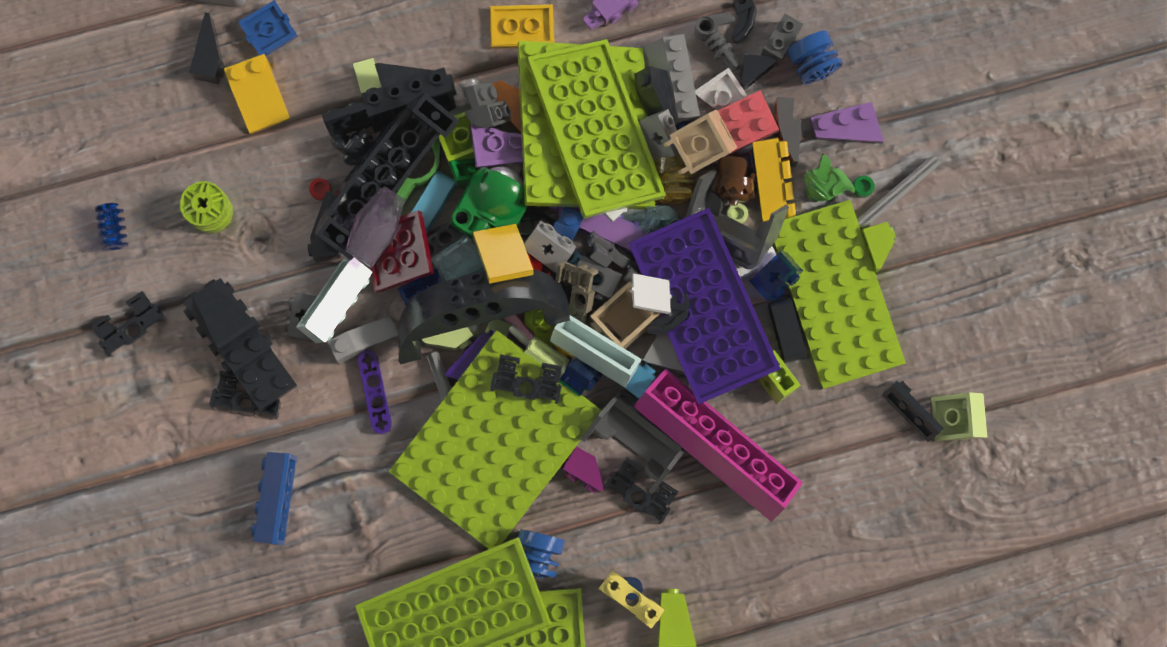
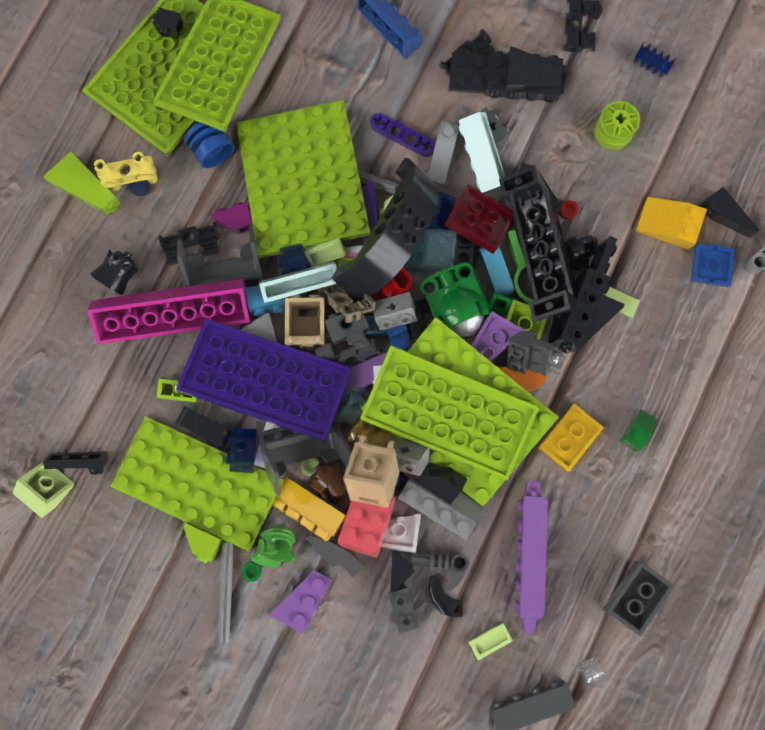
camera: 140 degrees right, 0 degrees up
(375, 226) = (508, 212): clear purple piece -> none
(503, 253) = (414, 272): yellow tile -> none
(507, 381) = (329, 209): black piece -> none
(650, 293) = (301, 347): white piece -> none
(671, 321) = (274, 352): black piece -> none
(727, 528) = (116, 271): none -> black hat
(813, 55) = (368, 619): blue wheel -> none

